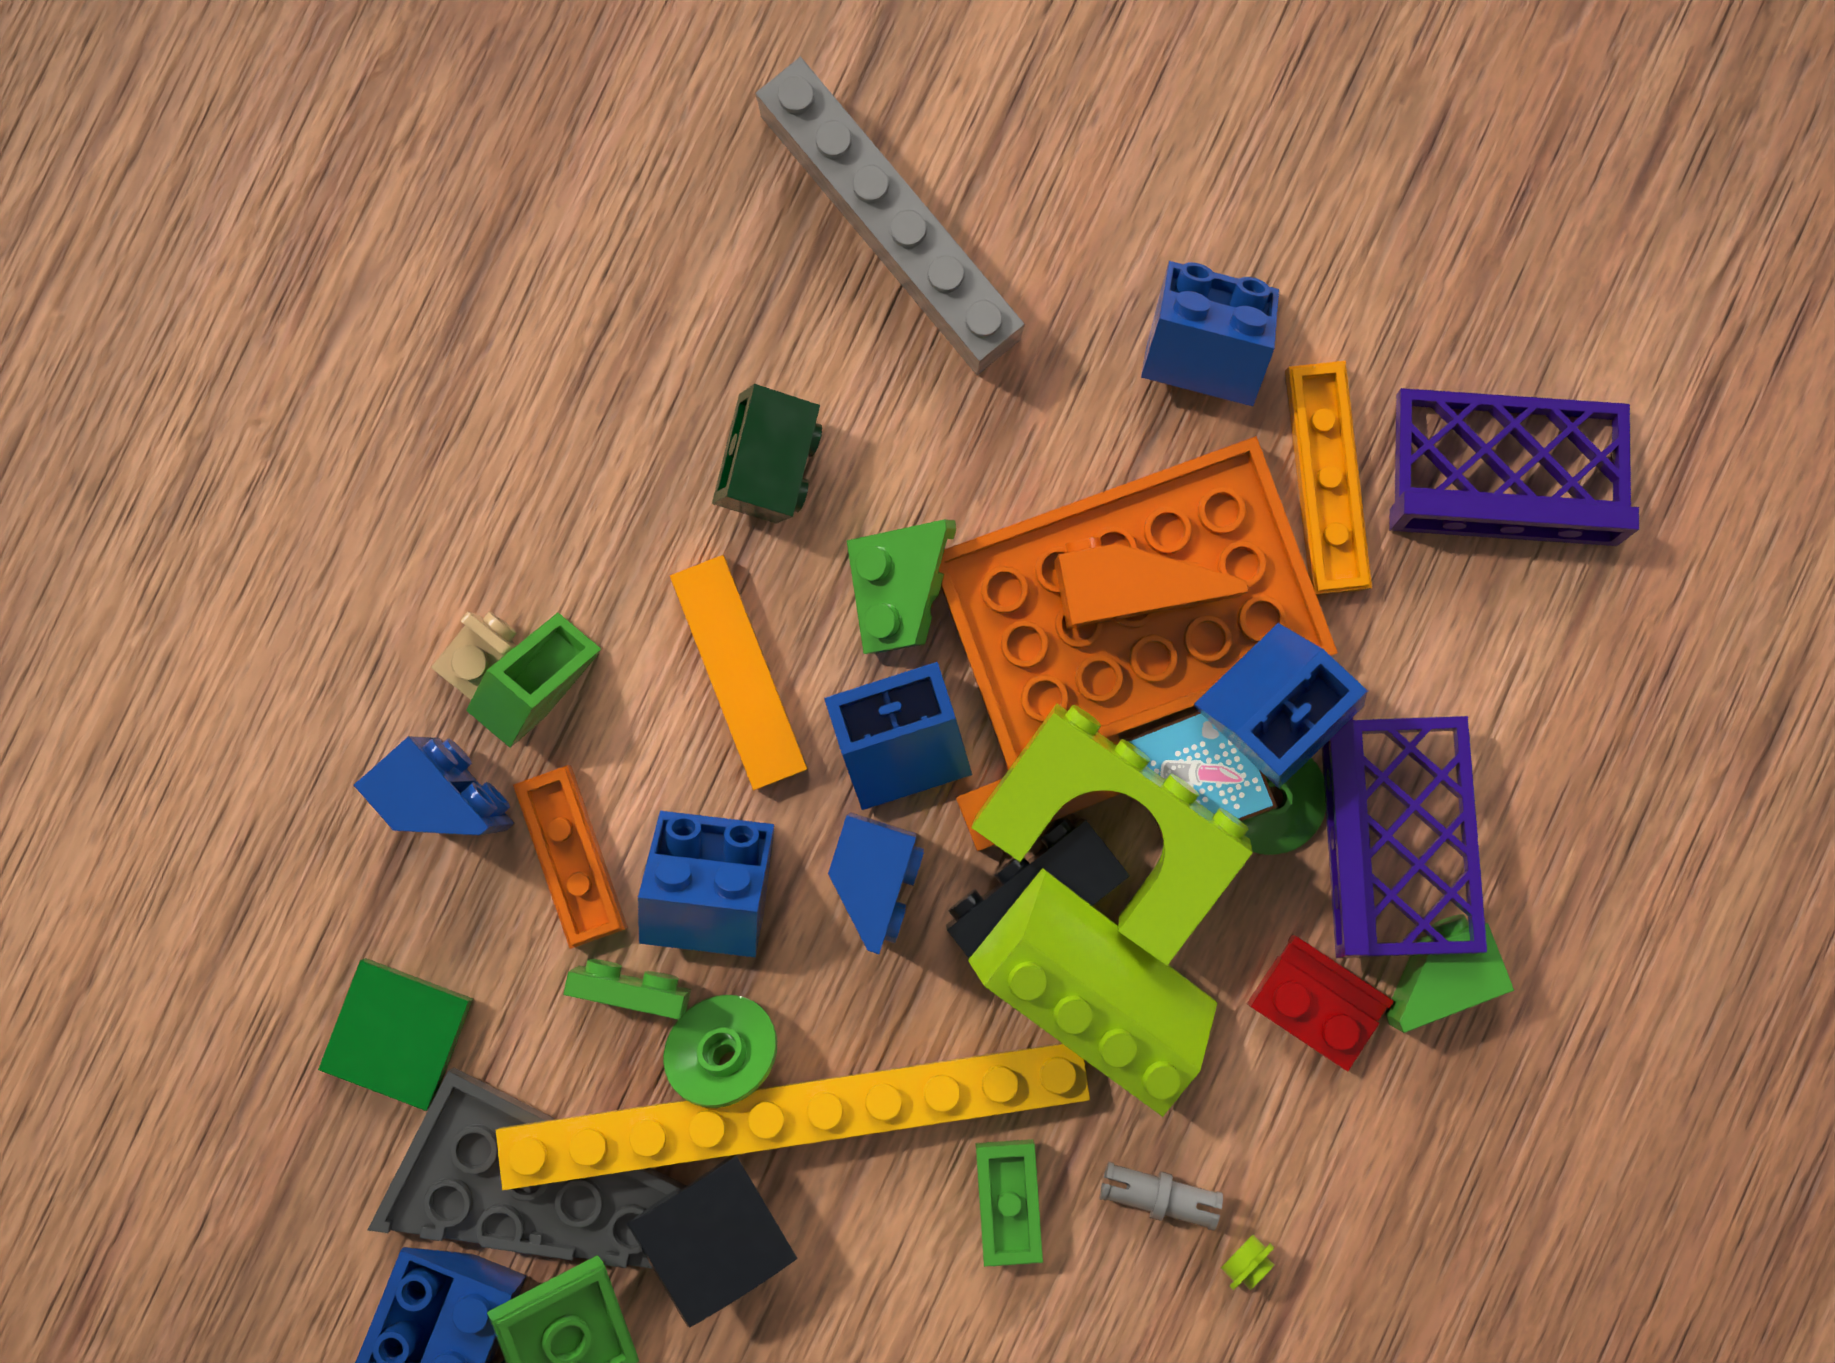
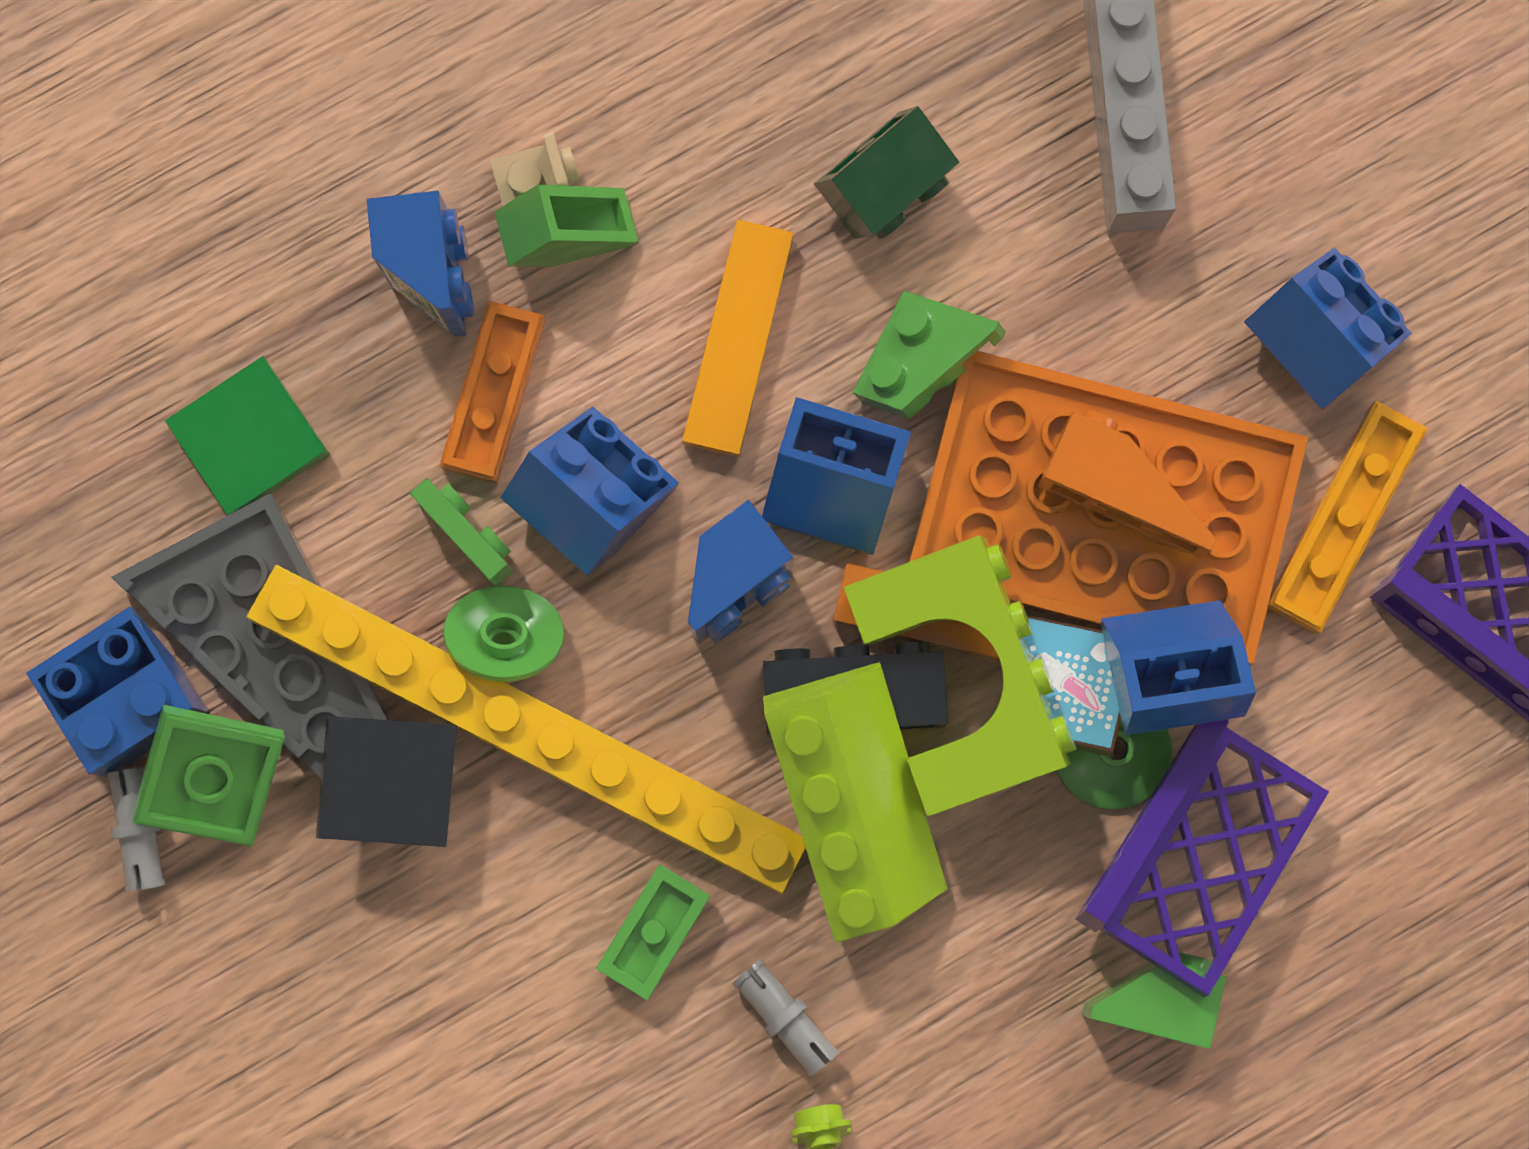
camera: 35 degrees right, 5 degrees down
(1320, 1002) = (1035, 952): red plate -> none

